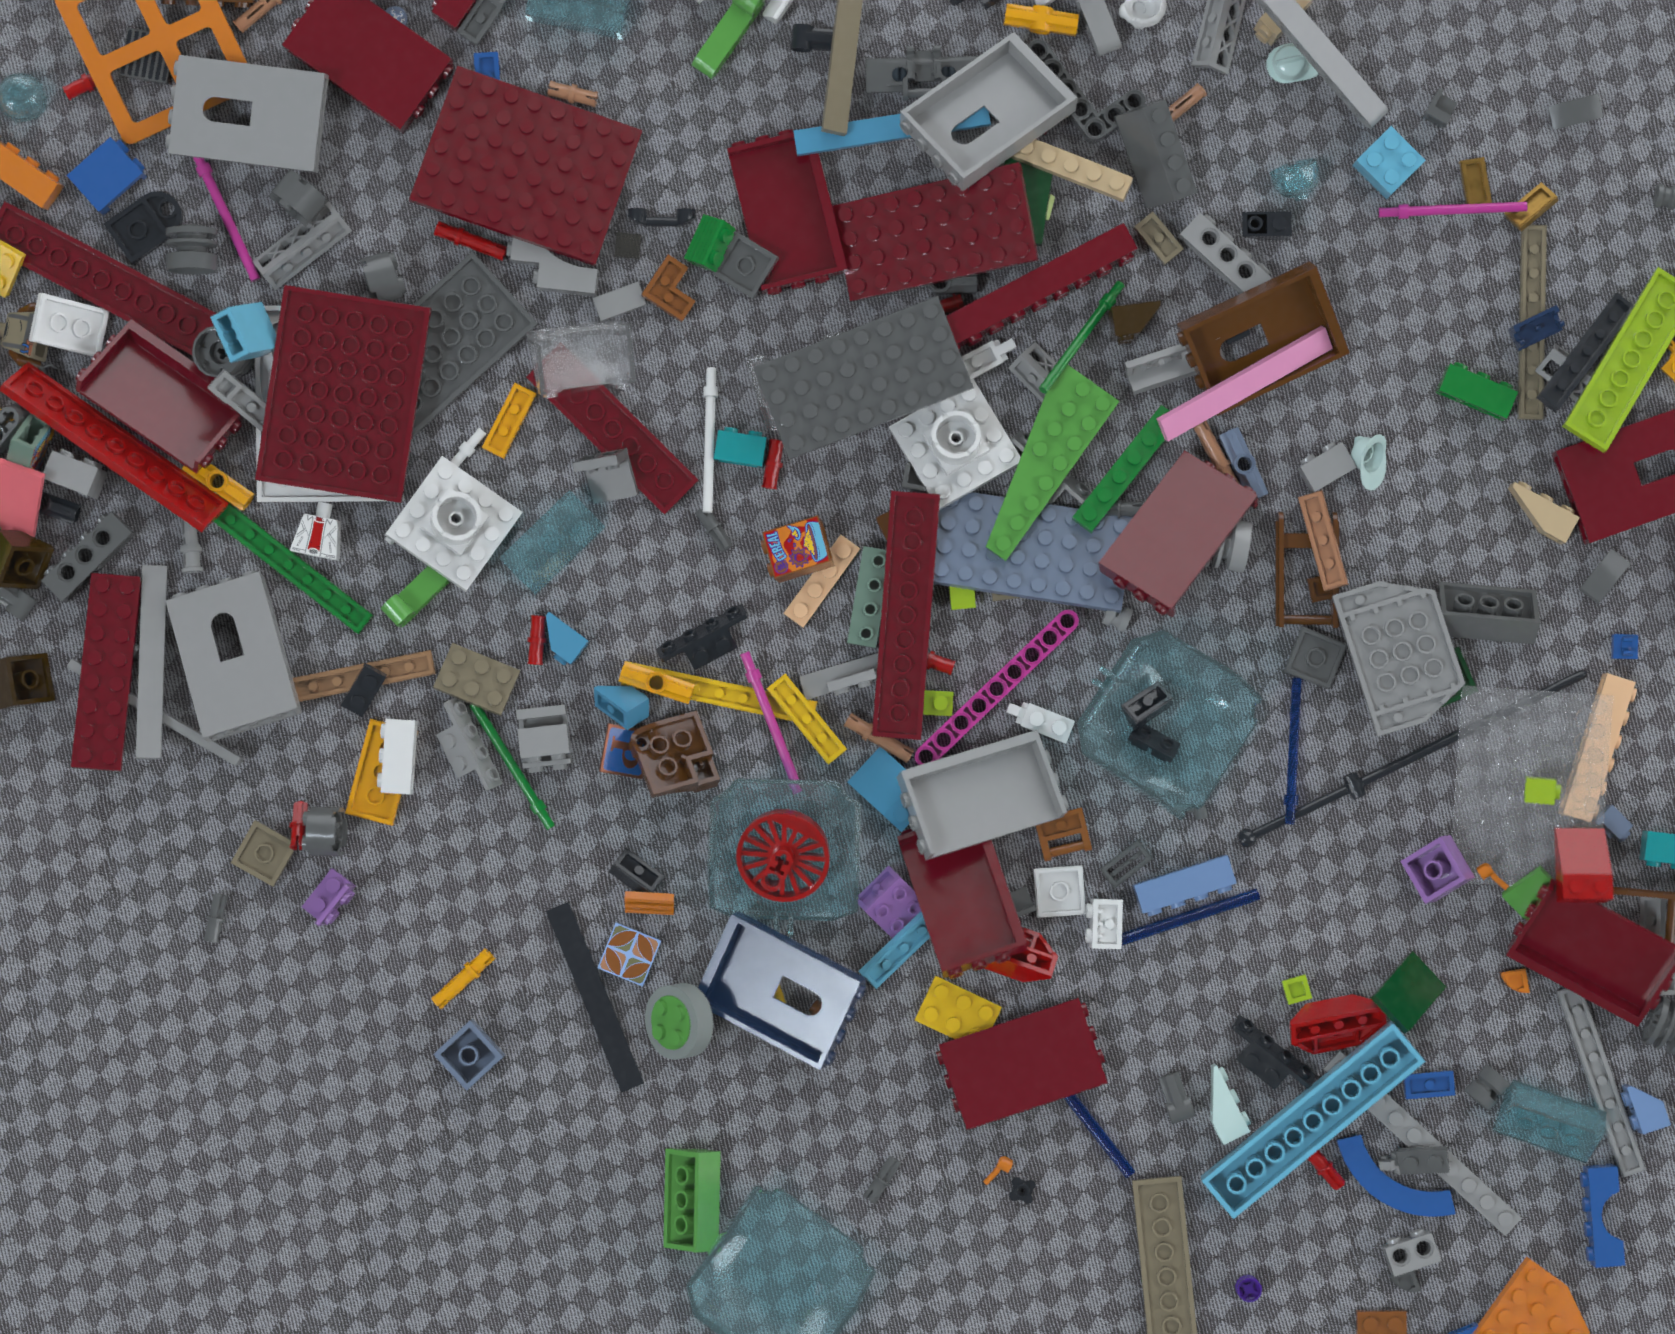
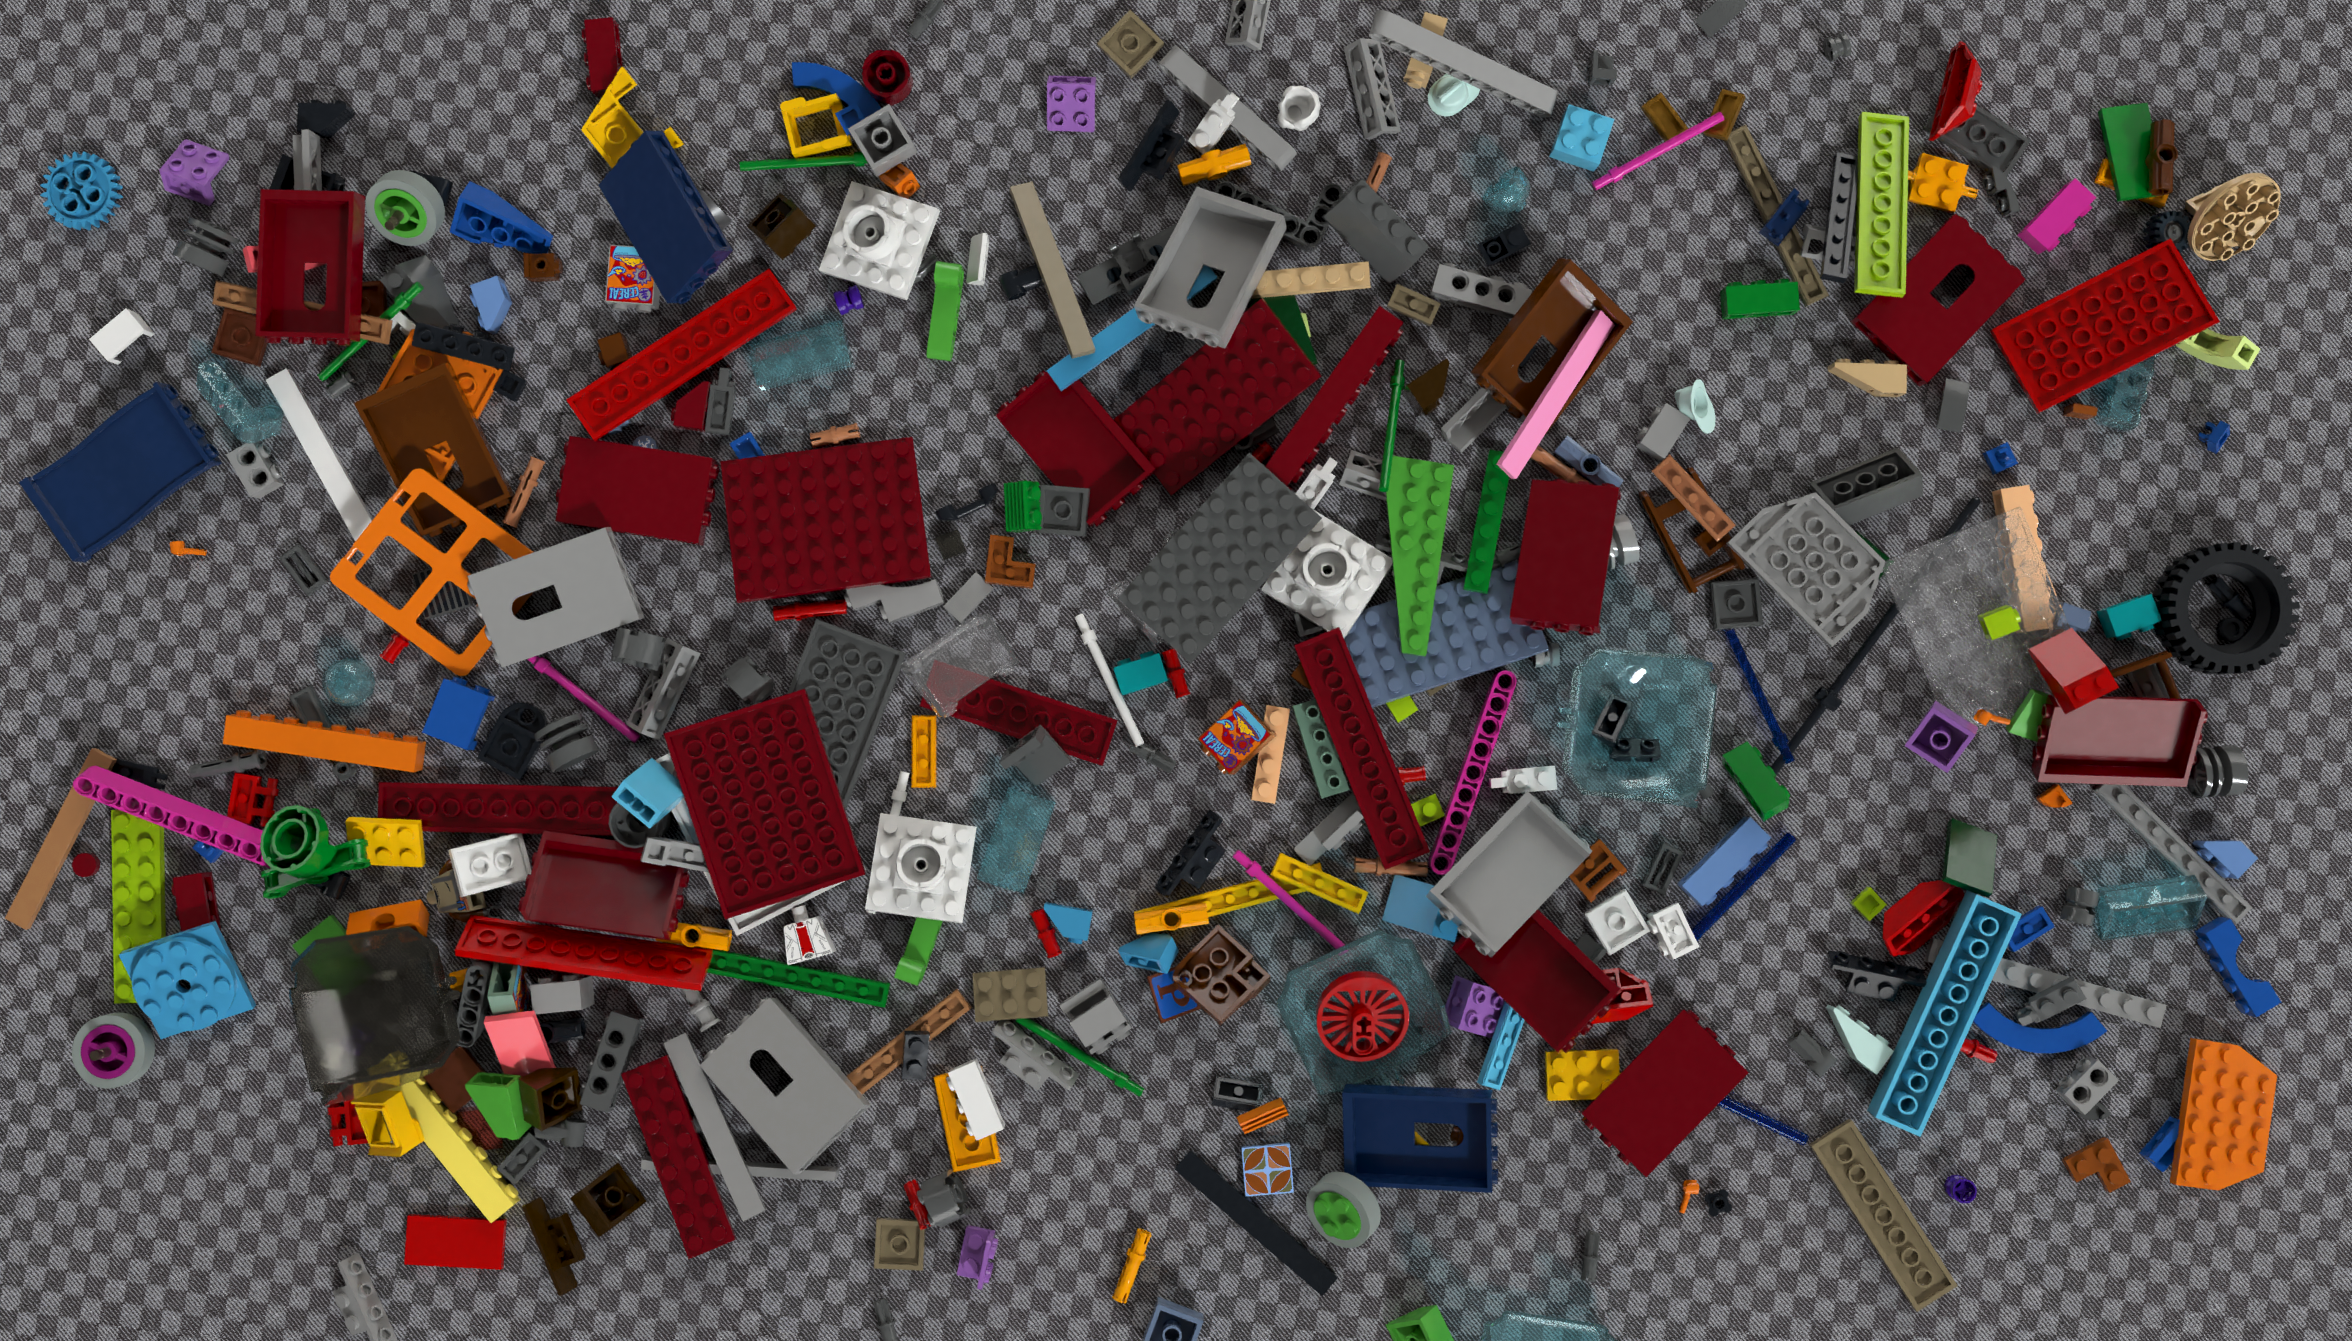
camera: 30 degrees left, 0 degrees up
(1249, 824) = (1756, 780): none -> green brick

